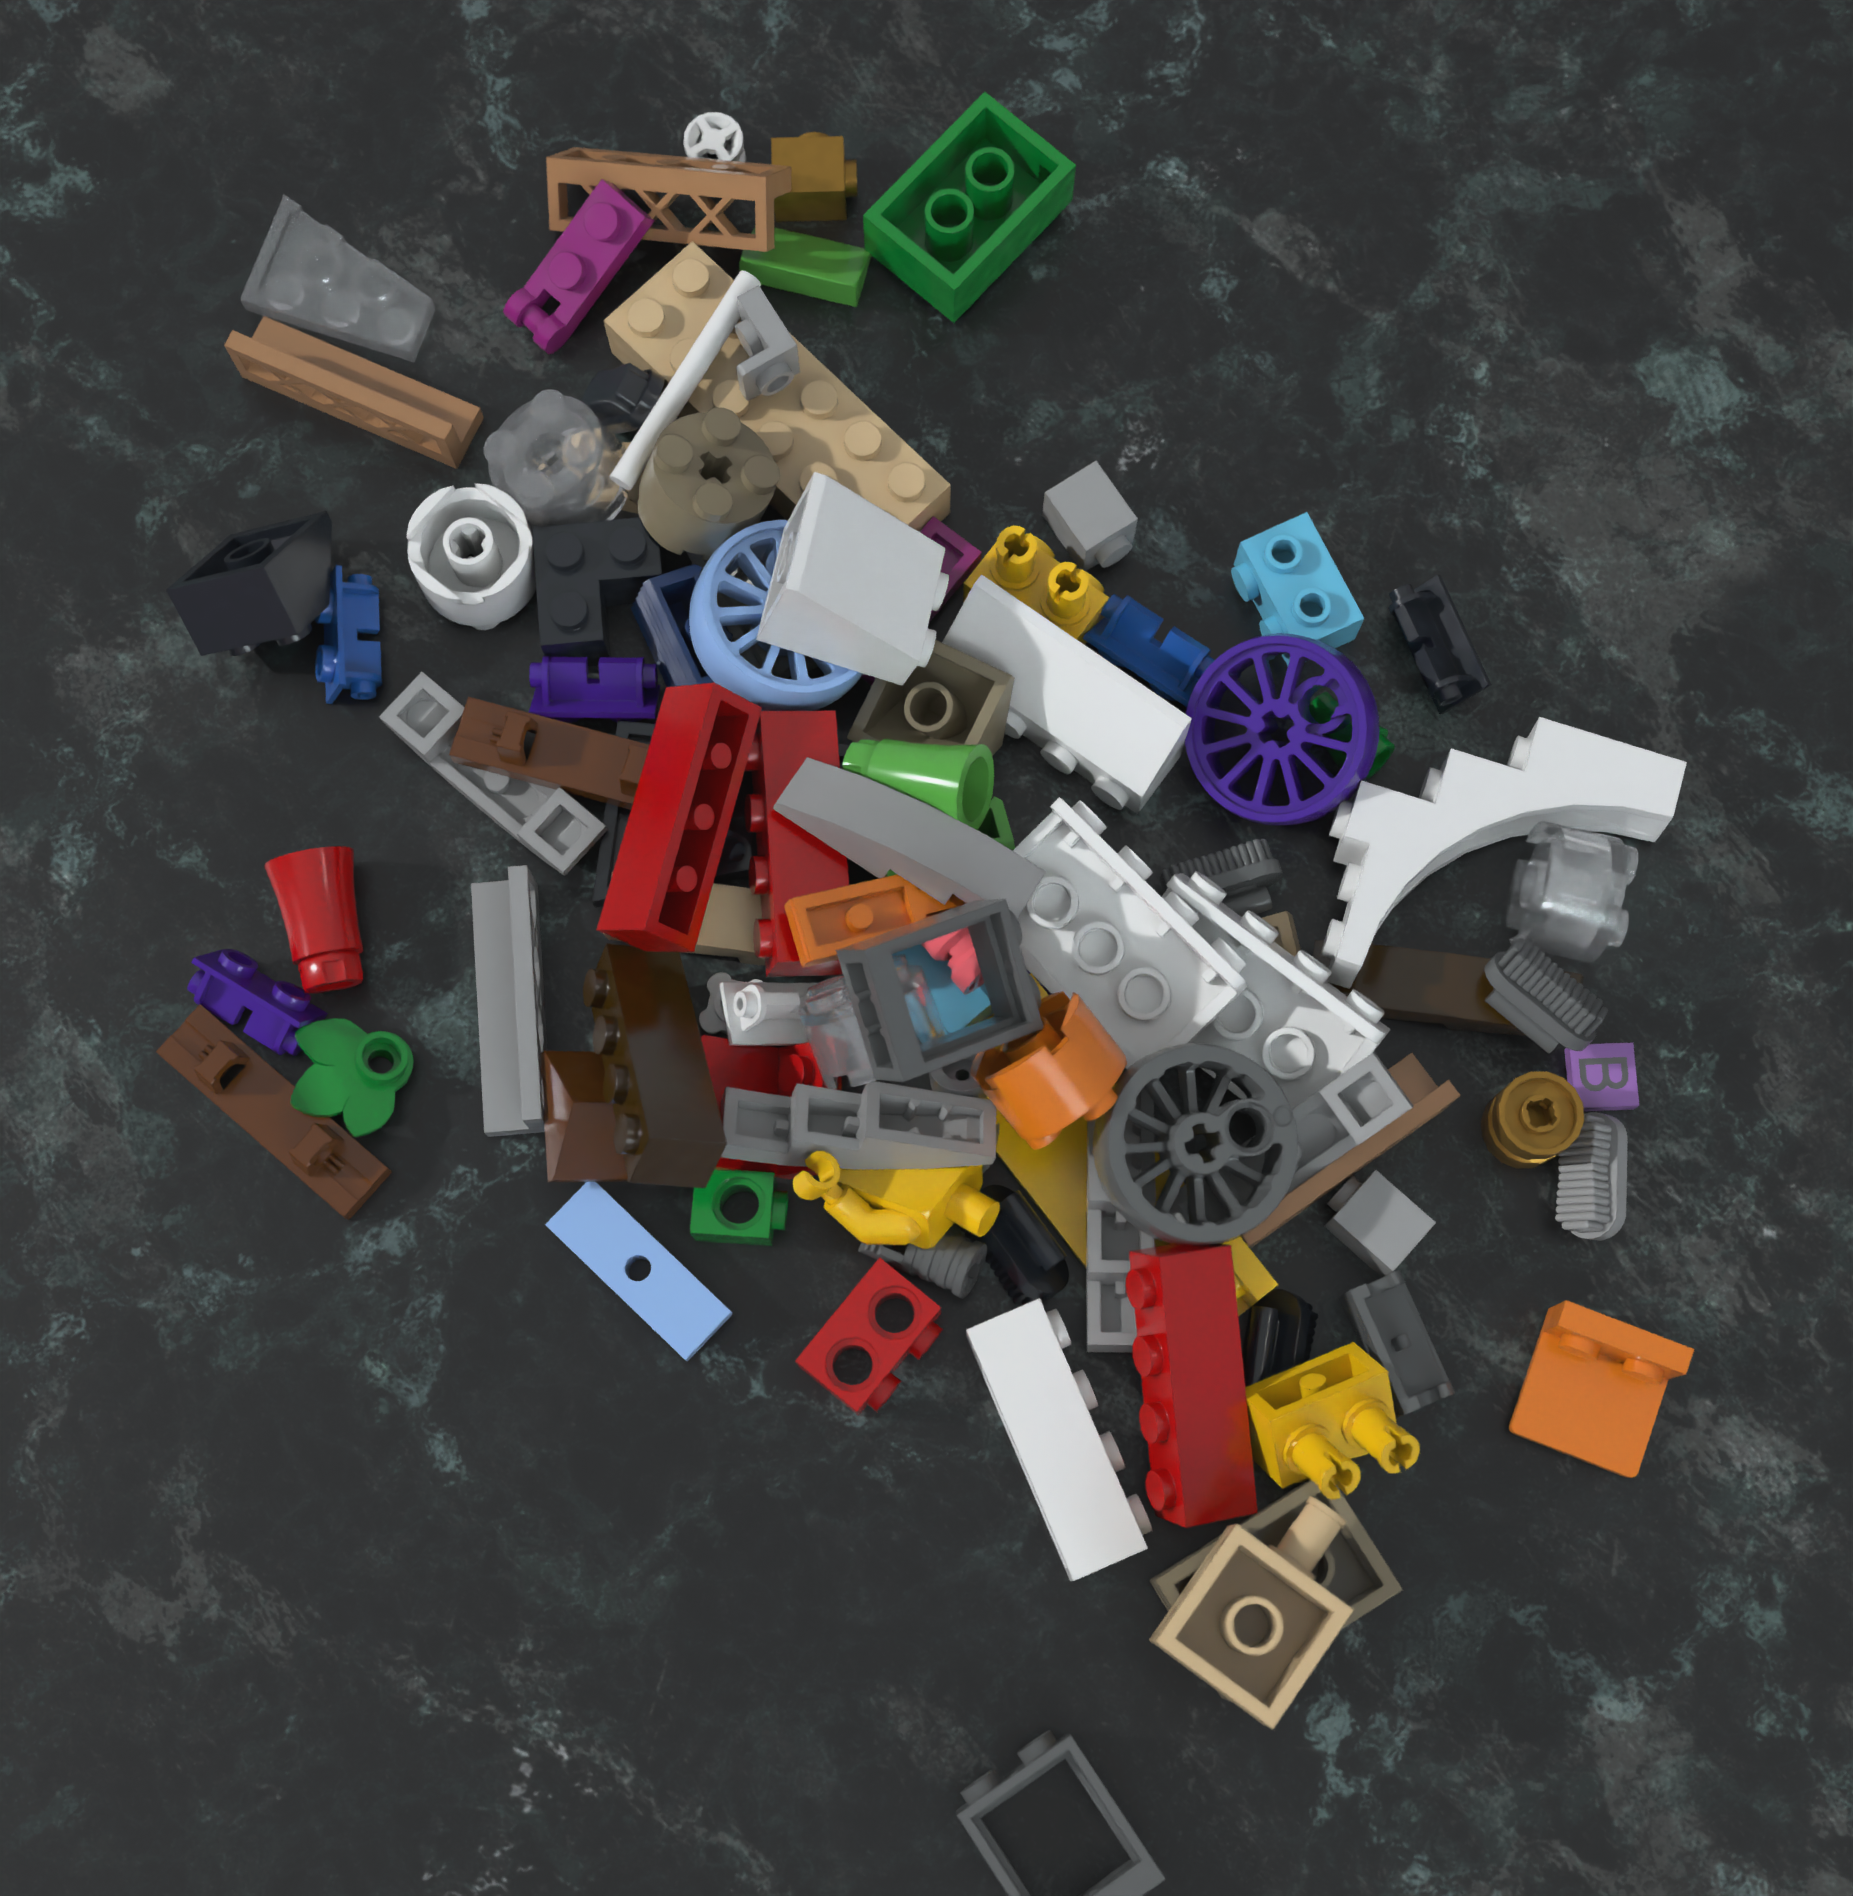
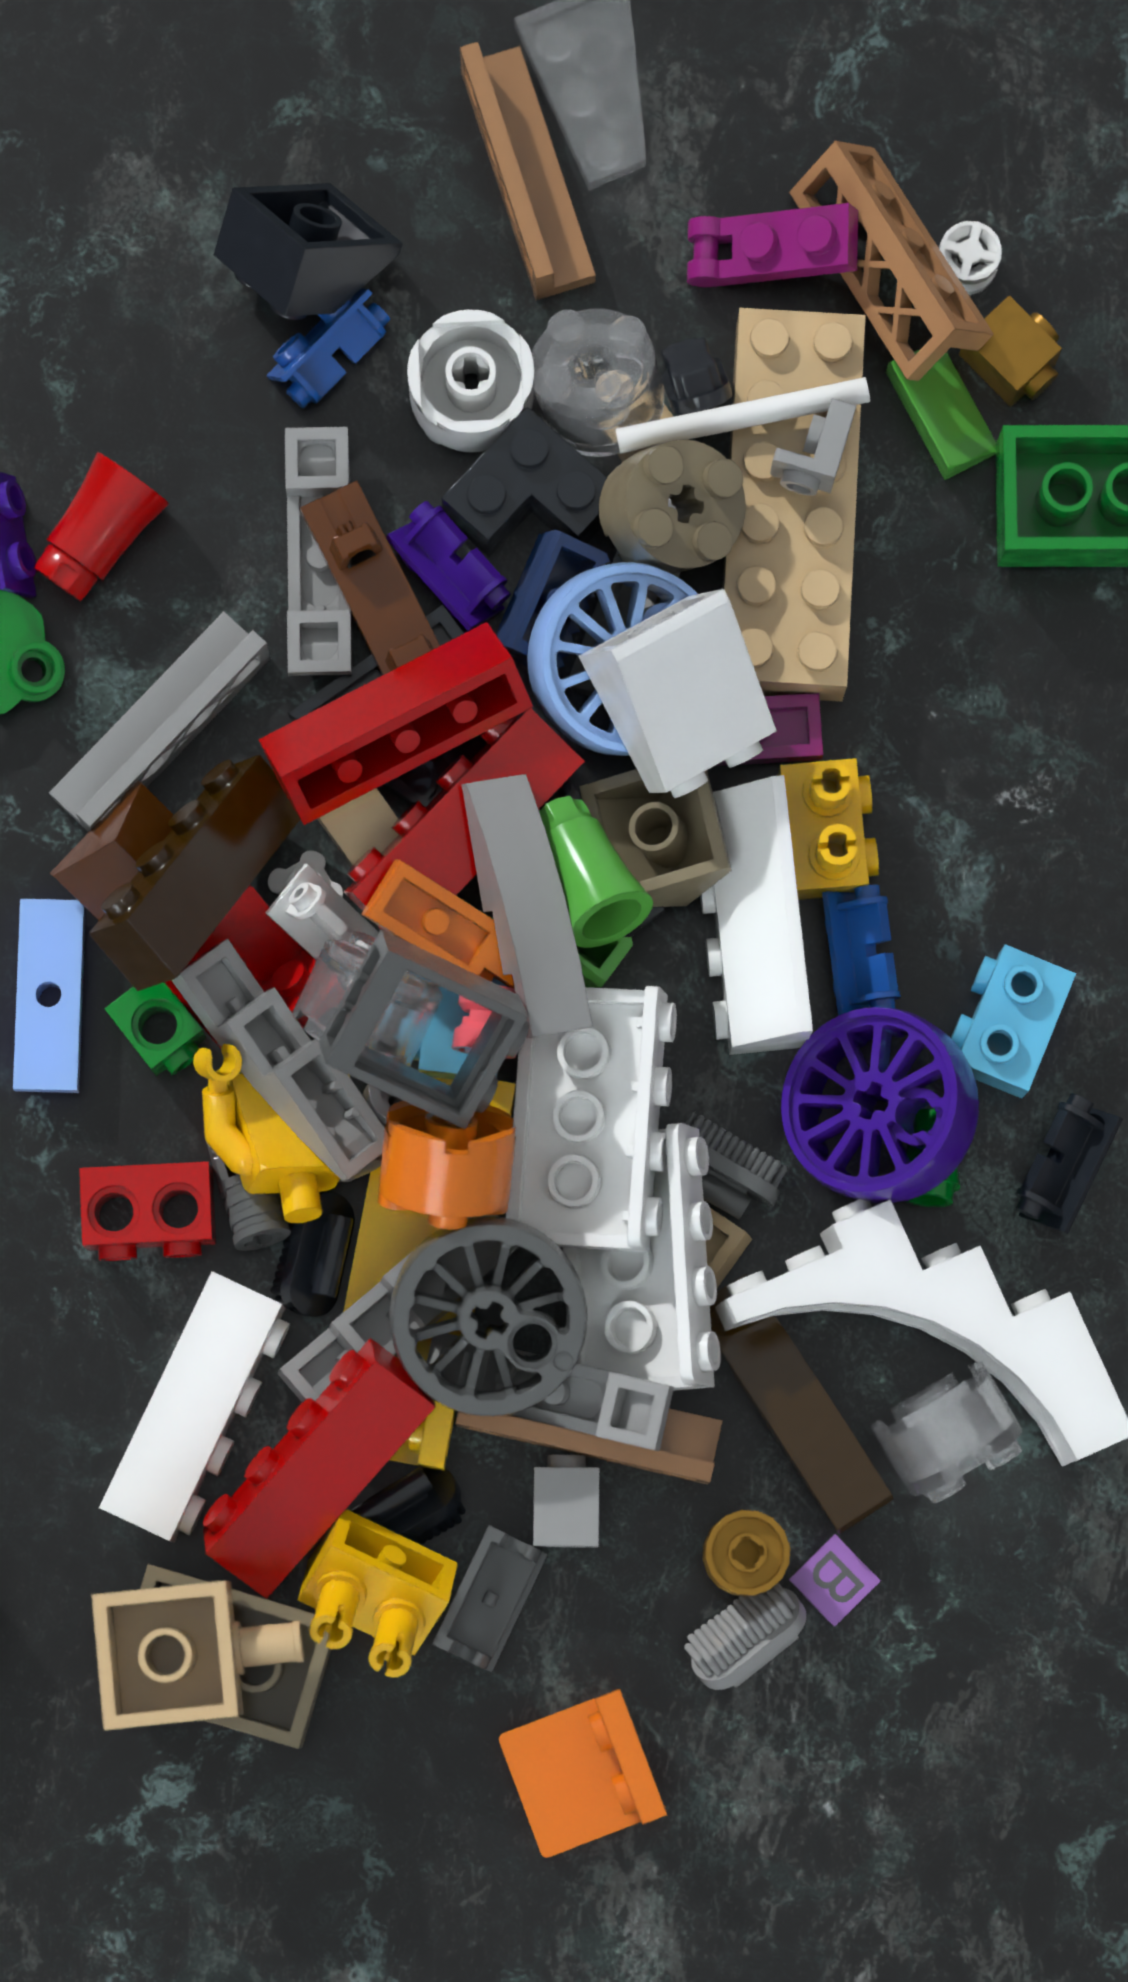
camera: 45 degrees right, 5 degrees up
(1090, 518) = (927, 813): light grey brick -> none
(1542, 998) = (838, 1479): dark grey piece -> none

